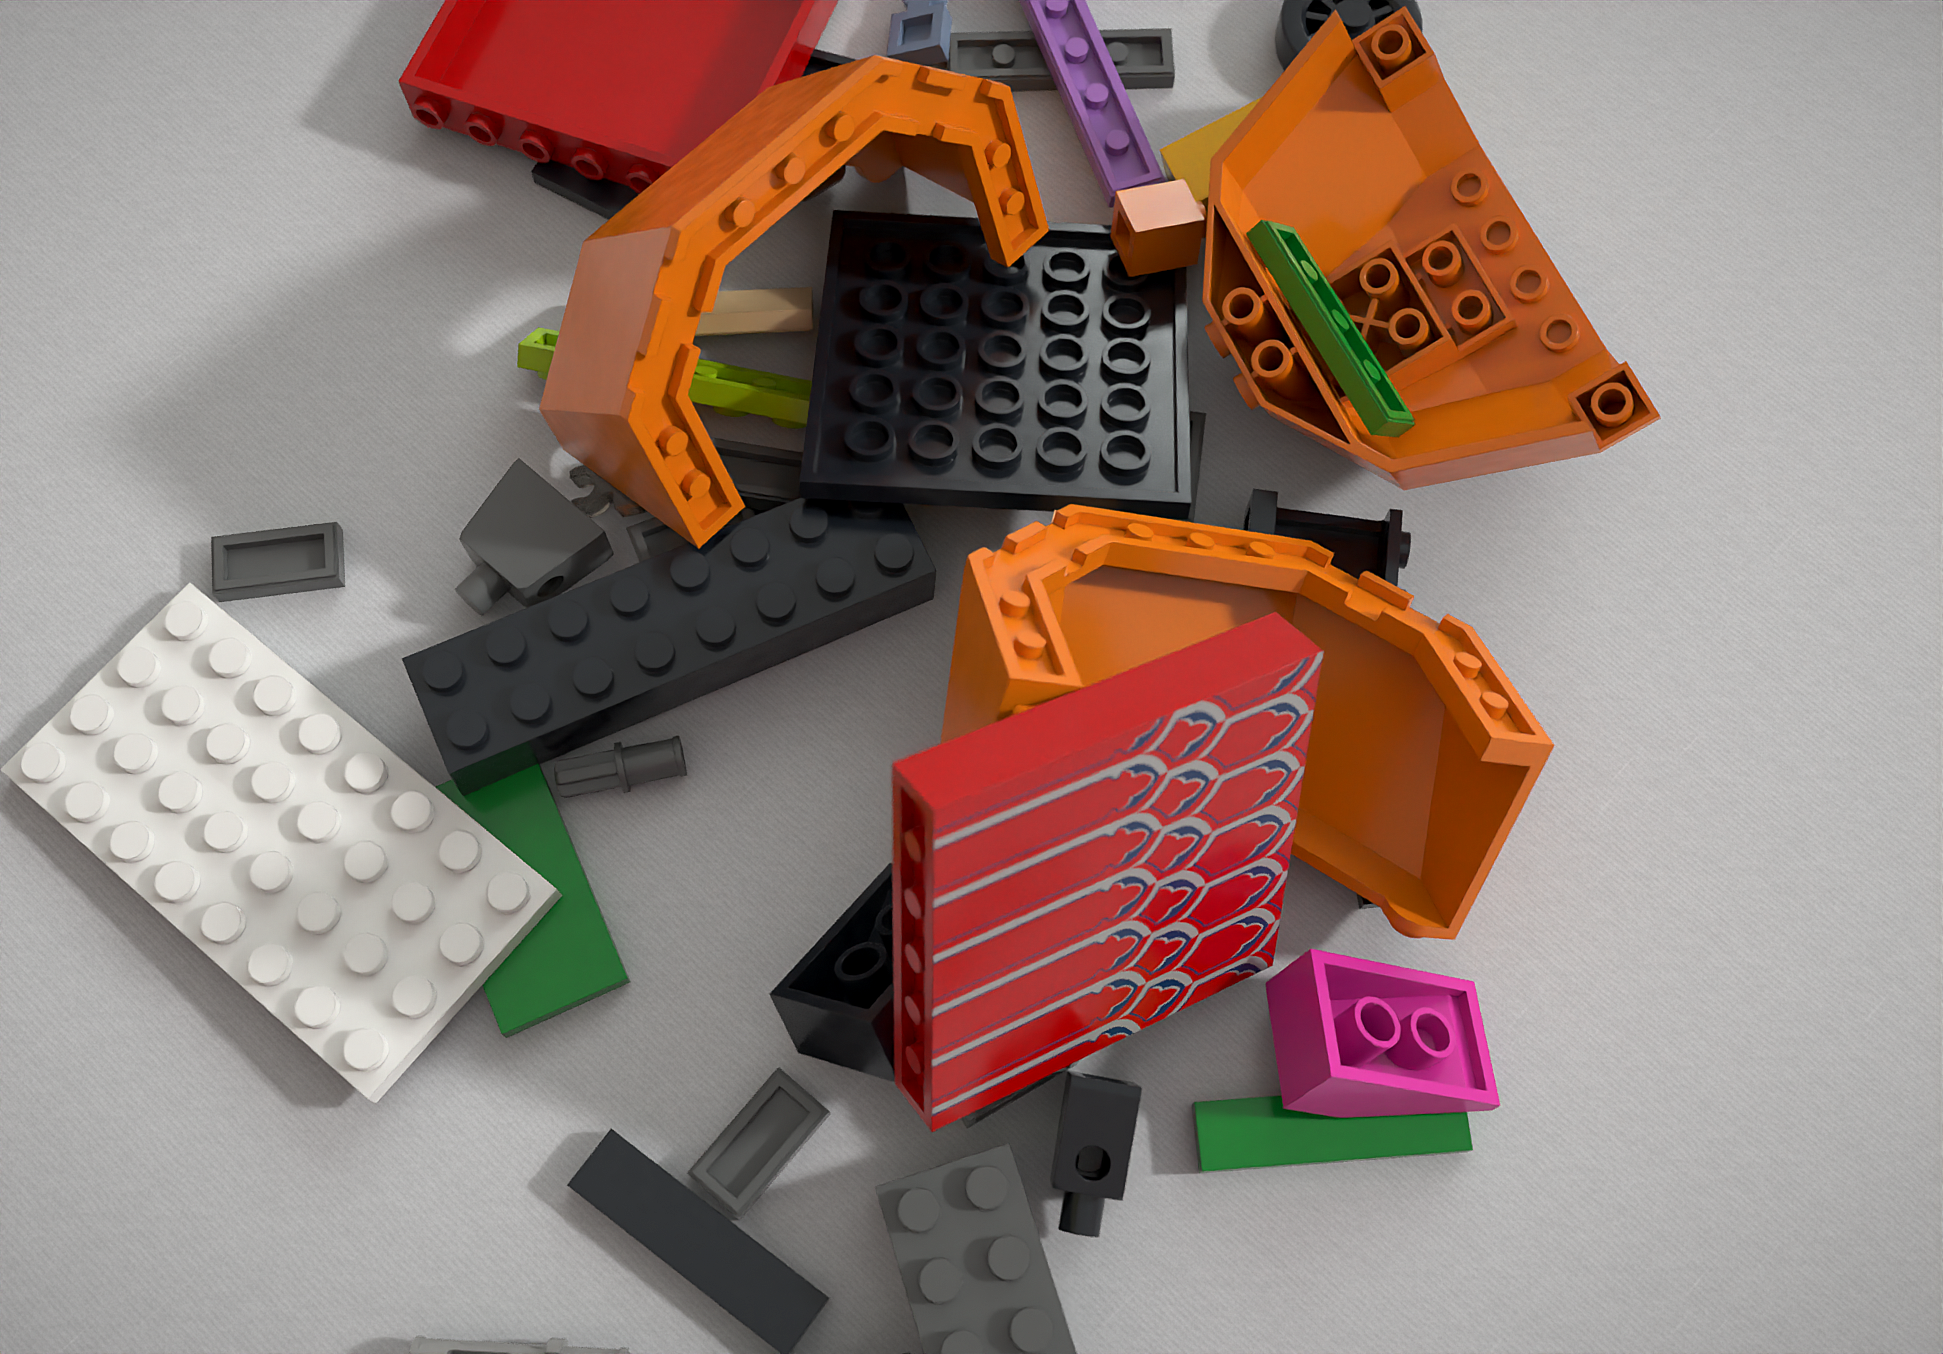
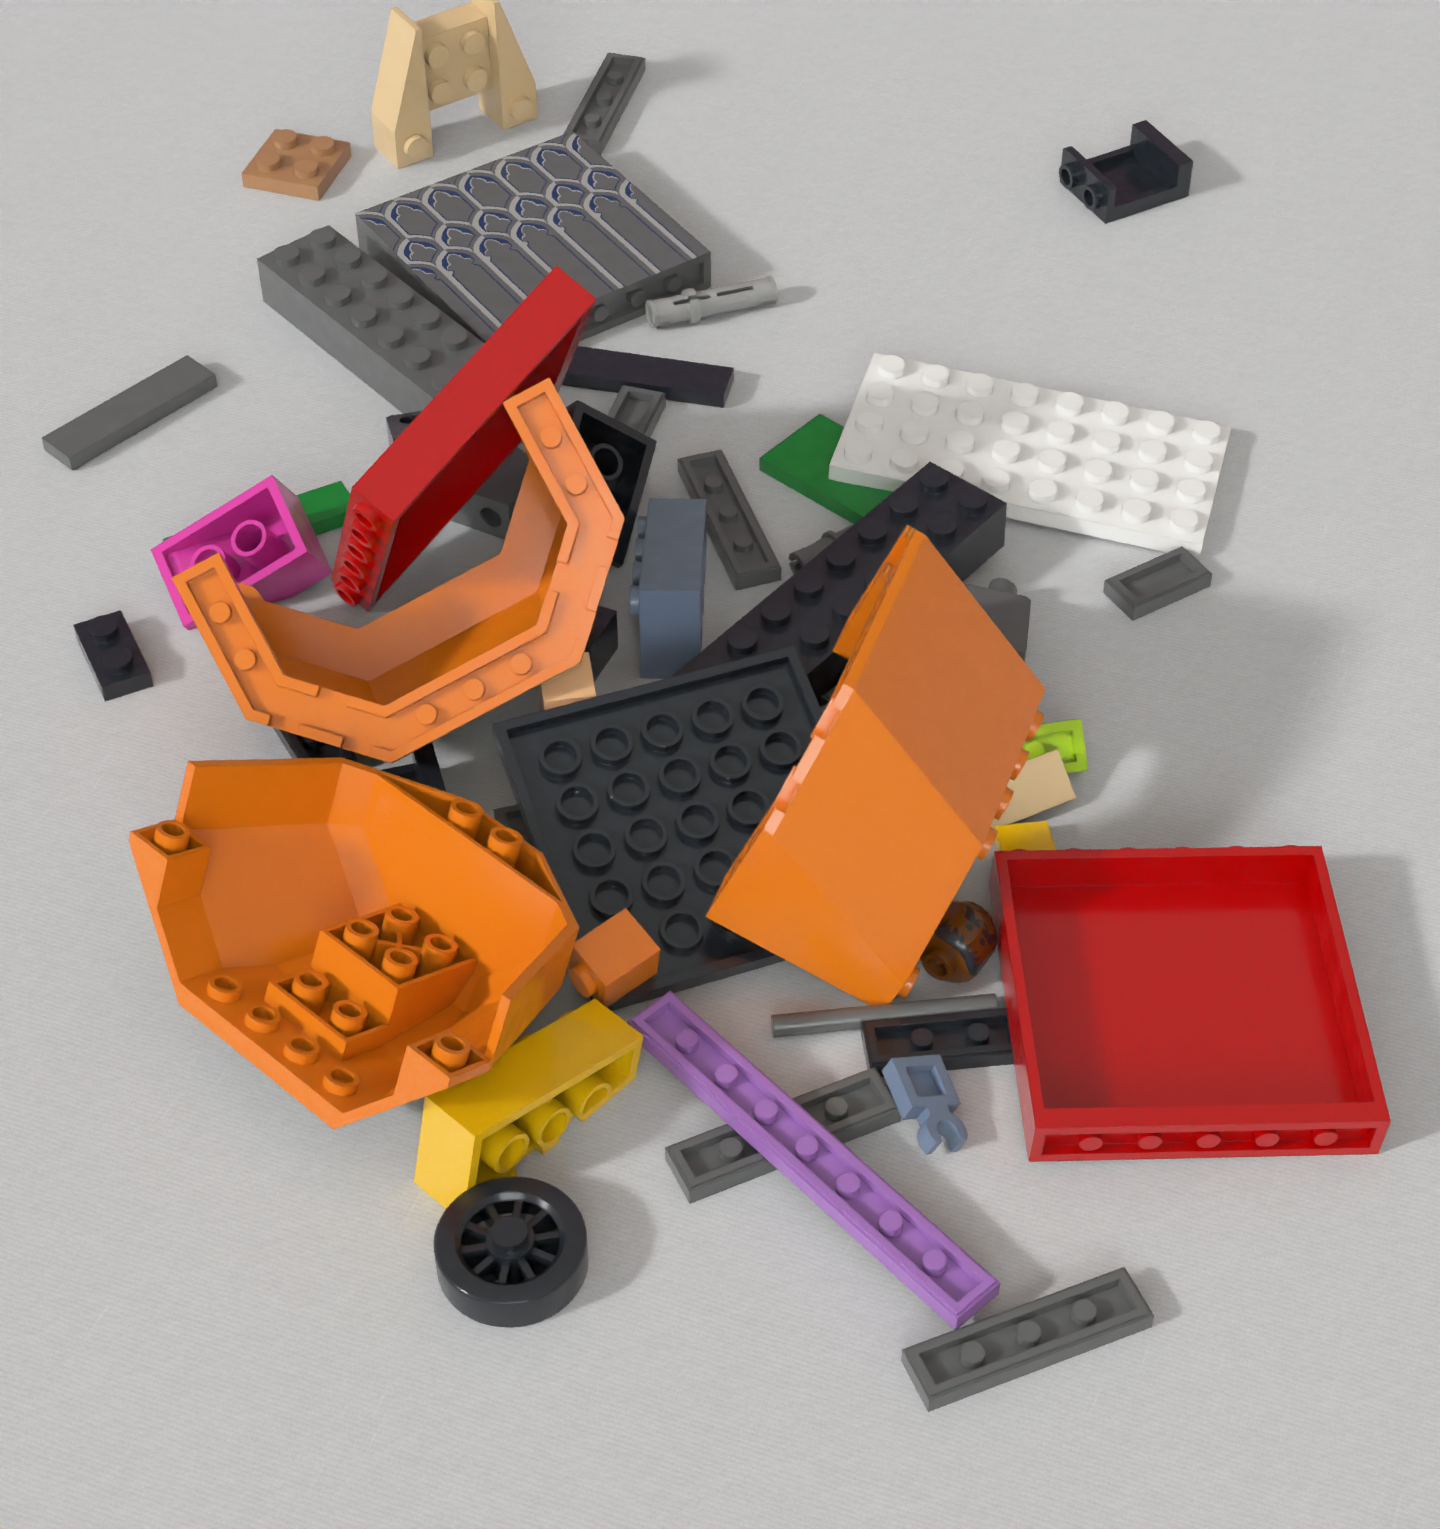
camera: 160 degrees right, 25 degrees down
(719, 894) = (730, 520): none -> dark grey tile
(848, 770) = (669, 584): none -> sand blue wedge
(1331, 329) = (430, 901): green tile -> none
(1573, 963) = (113, 655): none -> black plate

